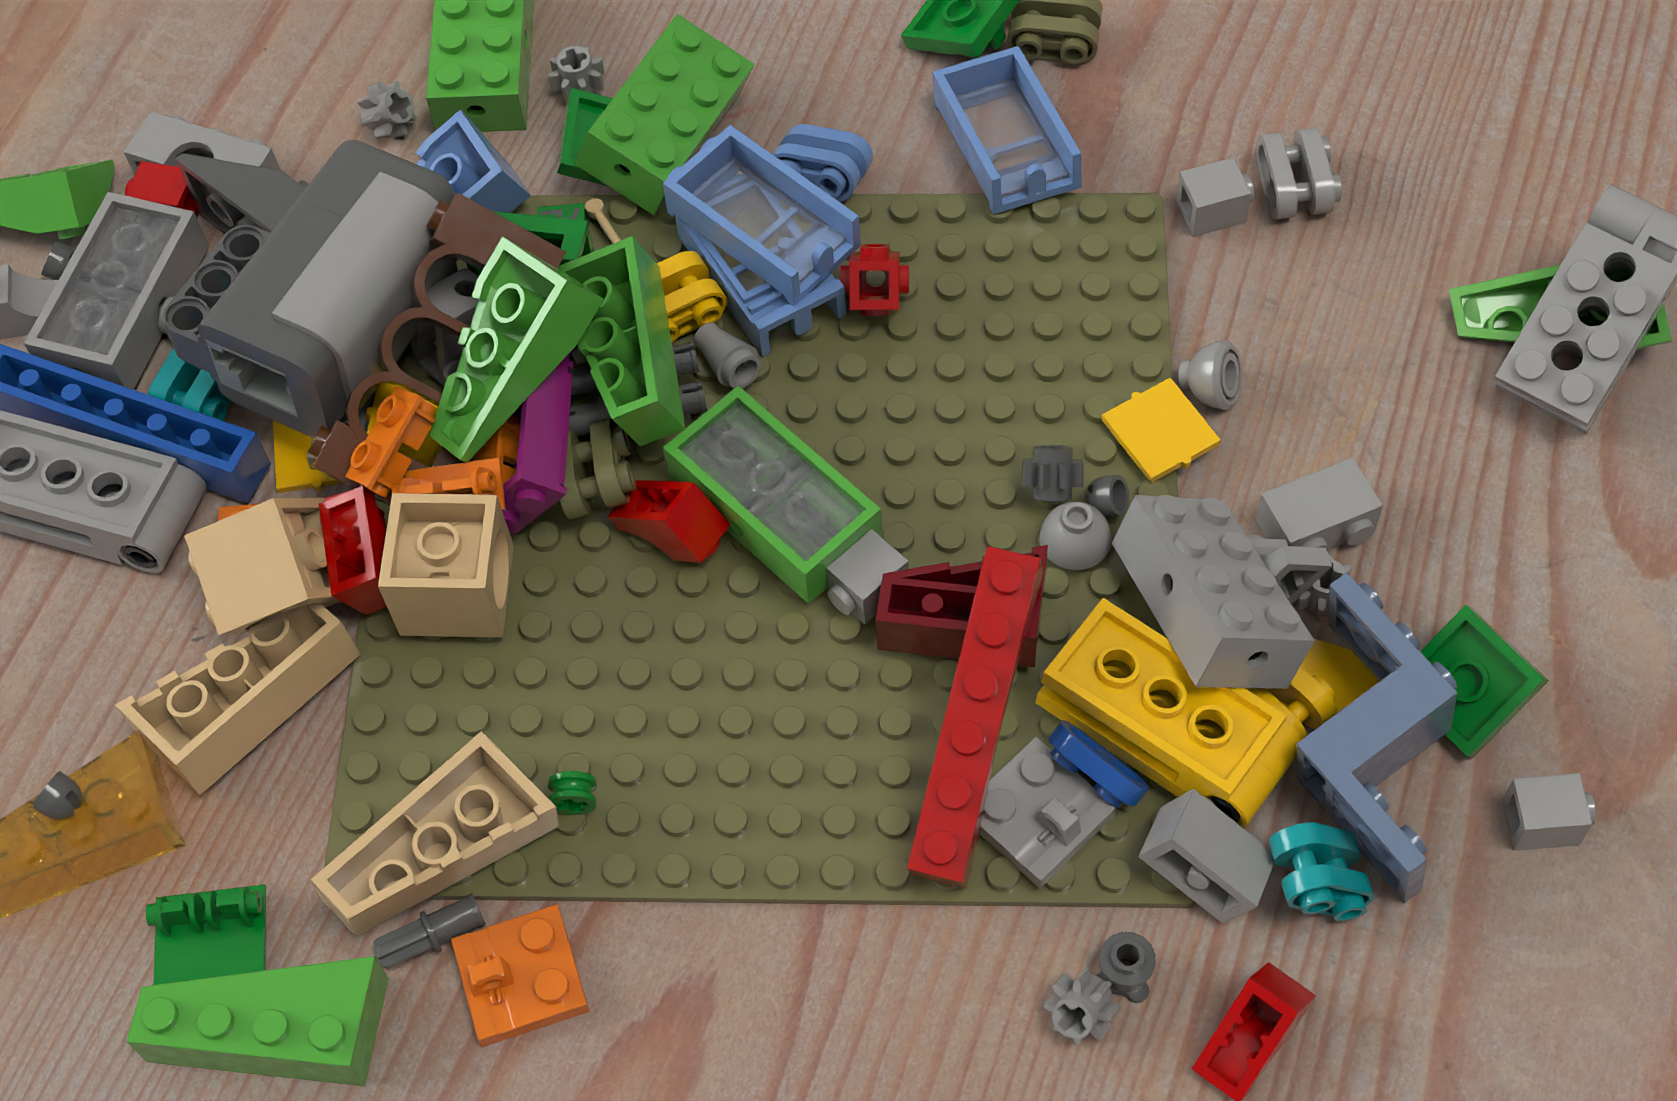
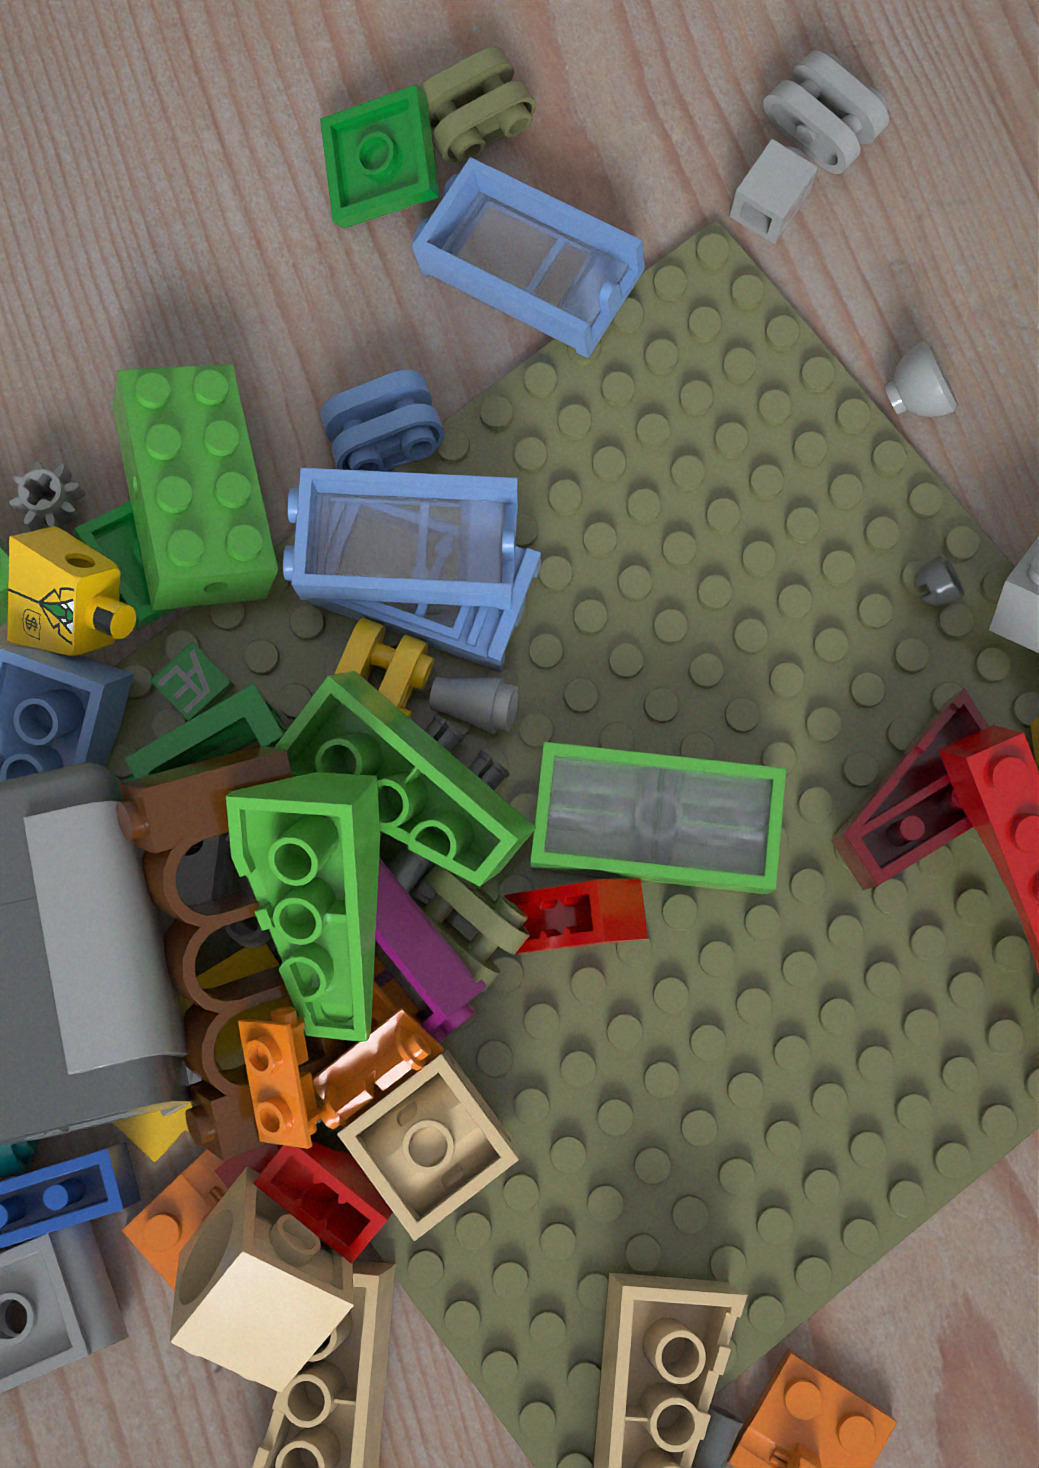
camera: 40 degrees left, 20 degrees up
(530, 118) = (63, 594): none -> yellow torso
(573, 792) = (726, 1252): green bush -> none
(596, 210) = (204, 636): tan hinge -> none
(858, 574) = (809, 833): light grey brick -> none
(871, 297) = (558, 520): red brick -> none
(1052, 472) = (881, 598): dark grey gear -> none
(1076, 536) = (939, 642): light grey brick -> none
(1160, 430) = (923, 475): yellow piece -> none

